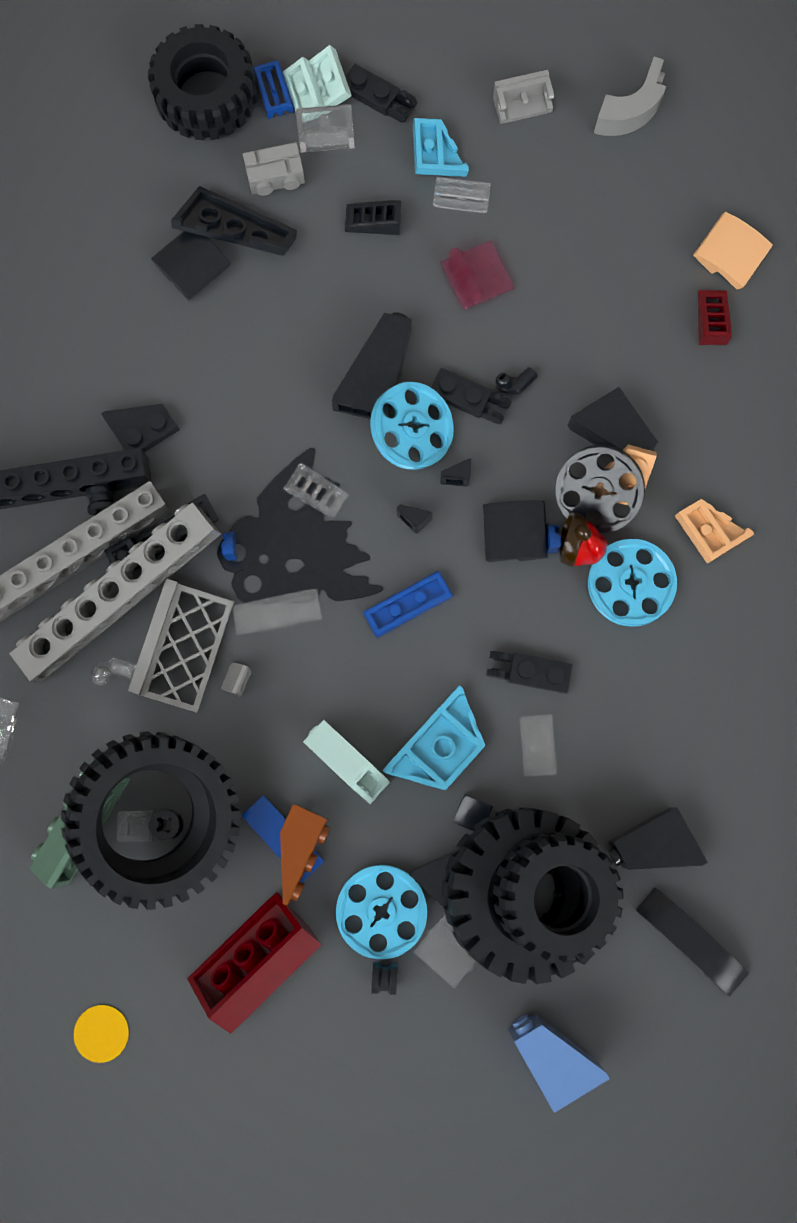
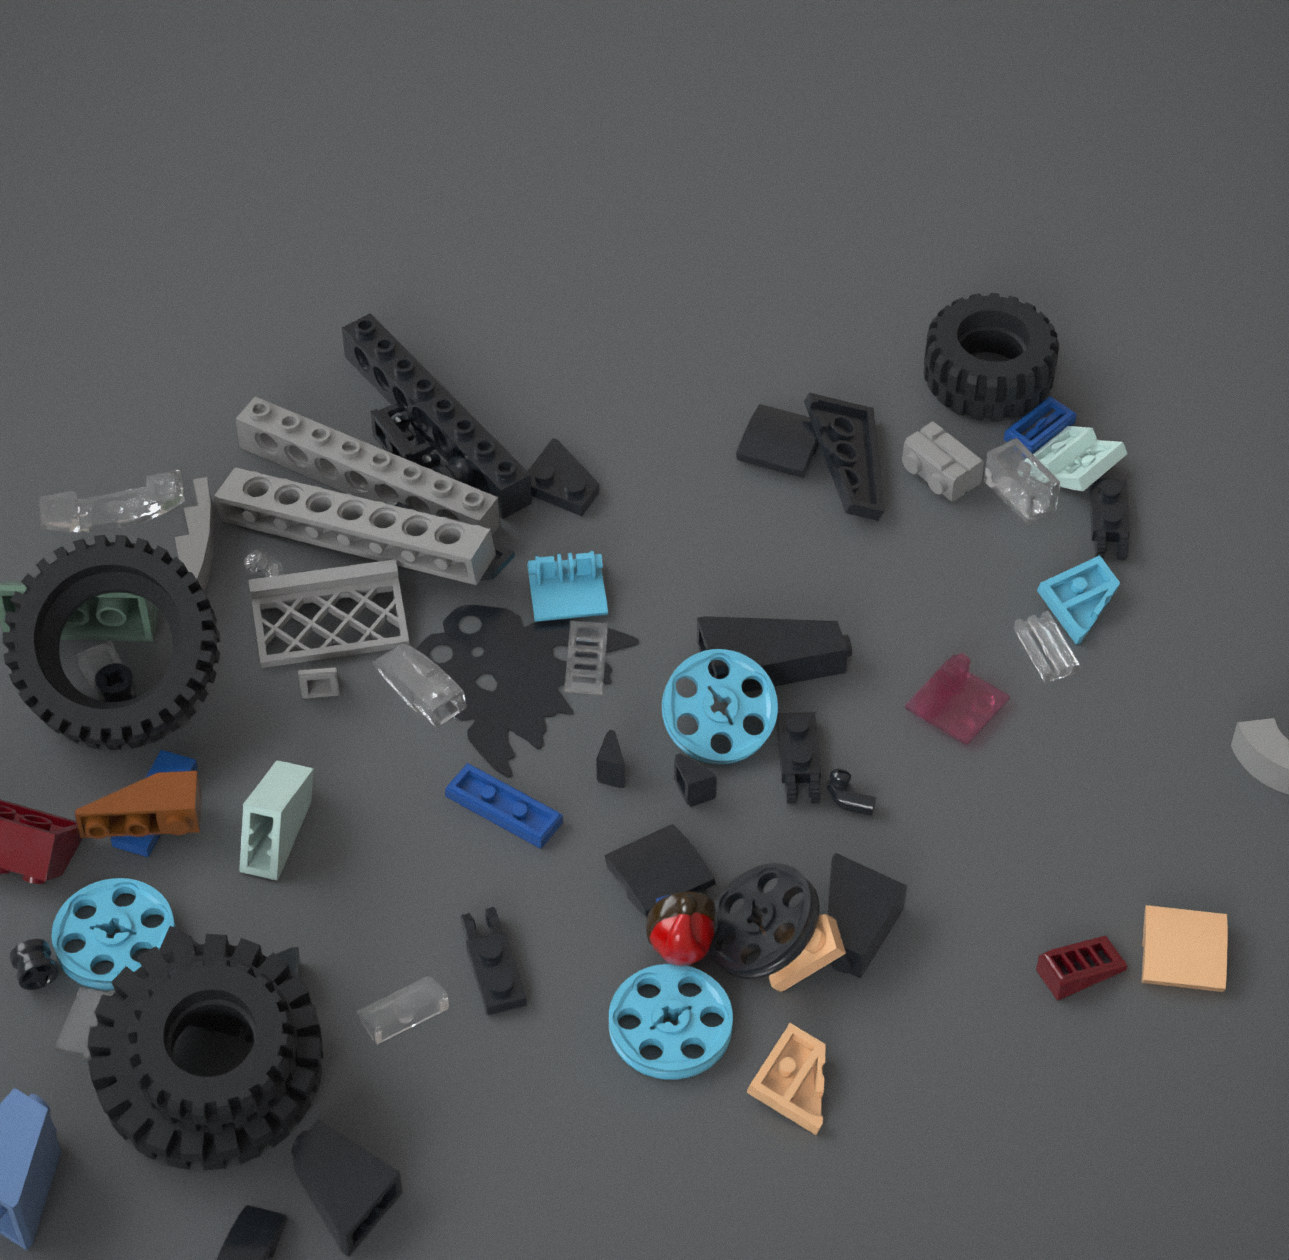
camera: 60 degrees right, 30 degrees down
(42, 519) = (401, 437): none -> black hinge
(69, 714) = (198, 547): none -> light grey slope
(228, 546) = (470, 607): blue tile -> none
(244, 472) = (567, 587): none -> medium azure hinge
(385, 208) = (957, 597): black slope -> none
(440, 746) = (348, 905): medium azure wing -> none
(523, 96) = (1213, 650): light grey hinge -> none

